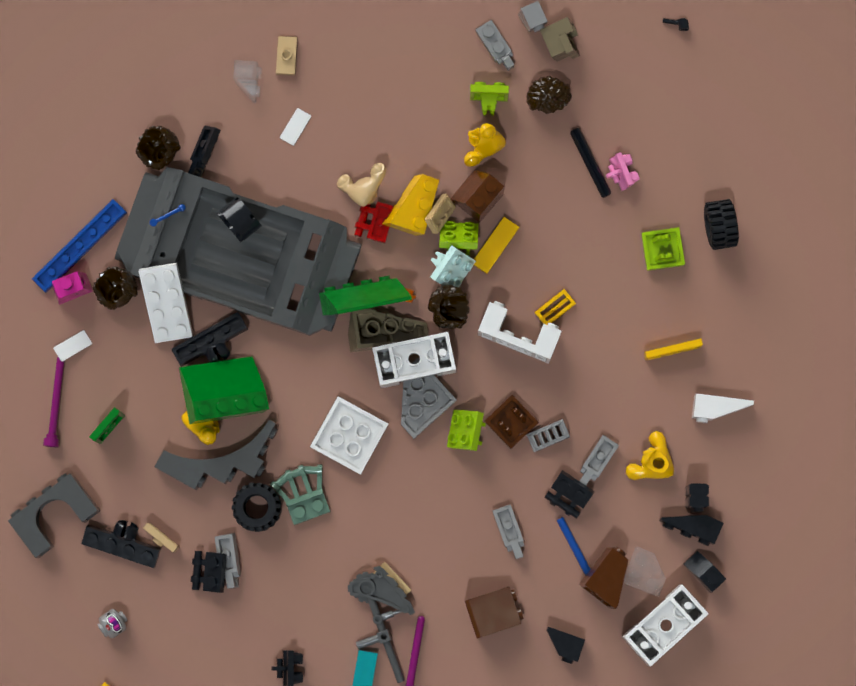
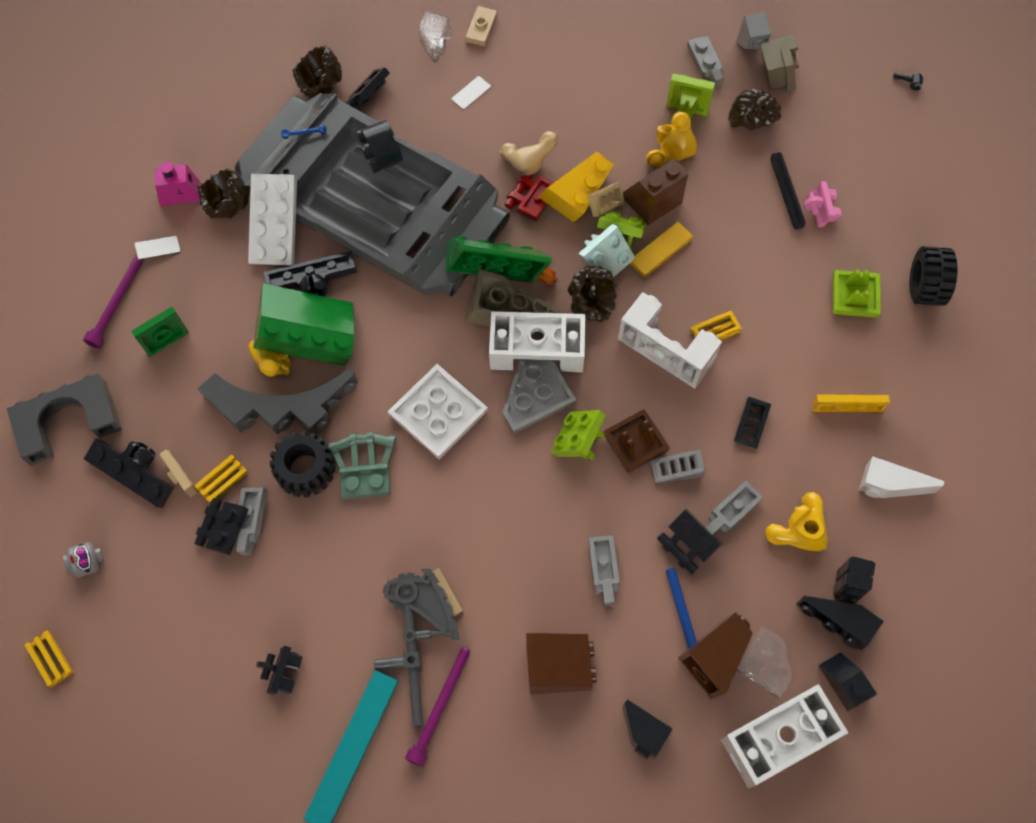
camera: 10 degrees right, 15 degrees down
(79, 245) = (210, 148): blue tile -> none
(188, 529) = (223, 476): none -> yellow tile
(597, 366) = (757, 404): none -> black slope

